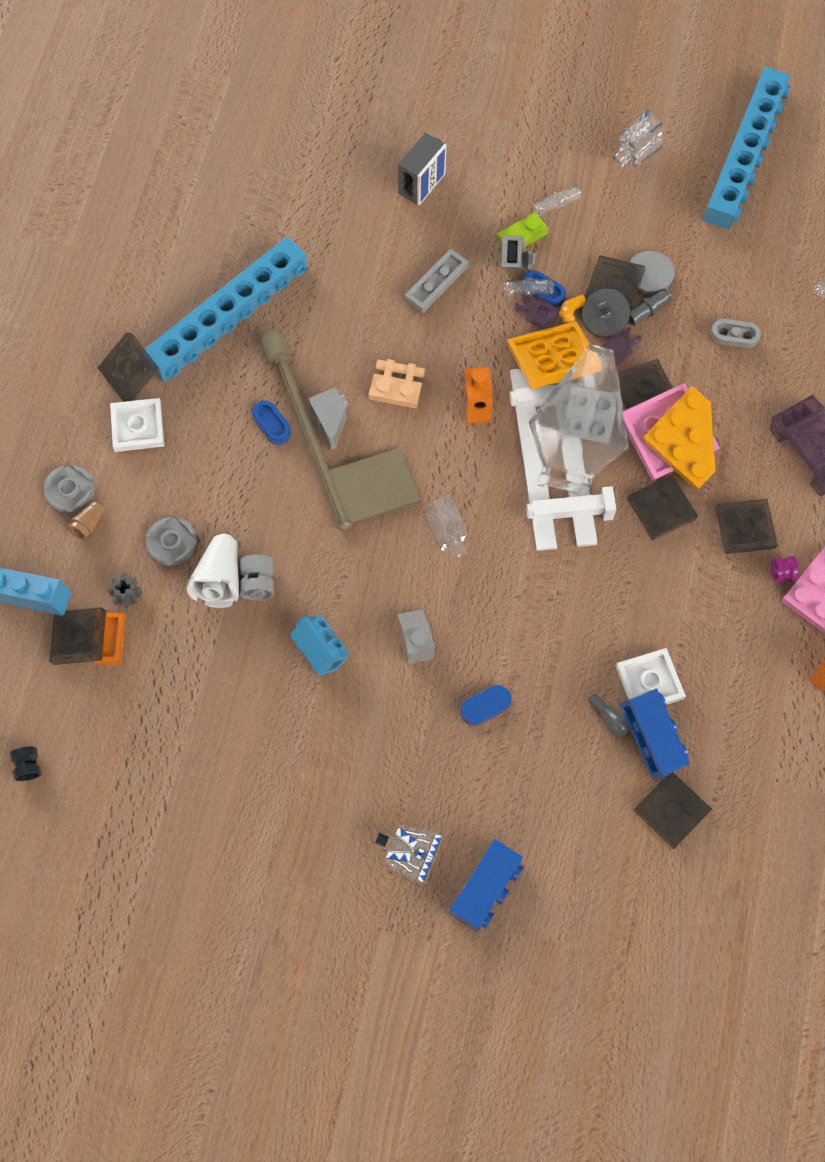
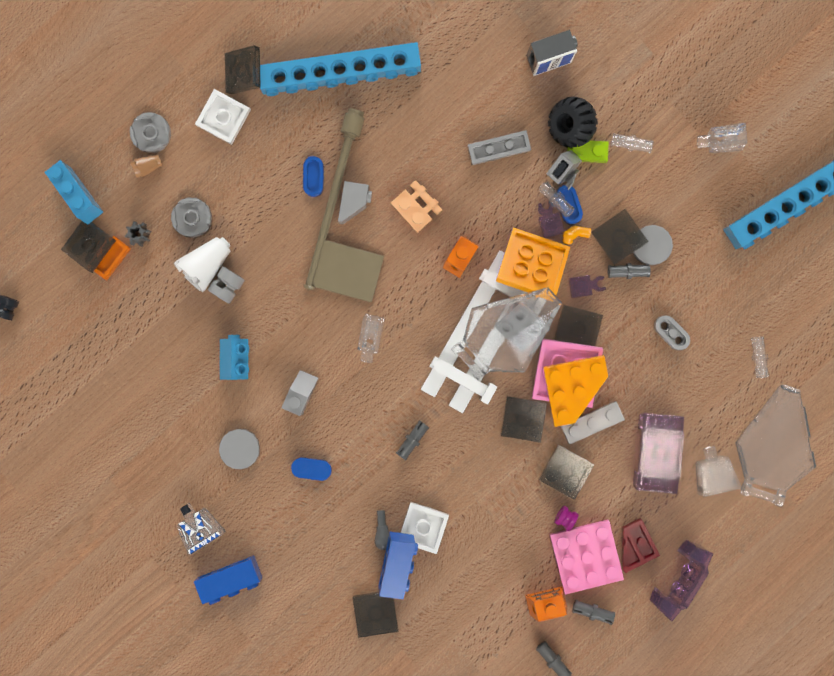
camera: 35 degrees right, 20 degrees up
(393, 738) = (239, 449): none -> light grey tile
(476, 218) = (562, 118): none -> black wheel
(568, 602) = (412, 440): none -> dark grey pin
(606, 312) = (595, 255): dark grey piece -> none
(731, 465) = (593, 422): none -> light grey plate

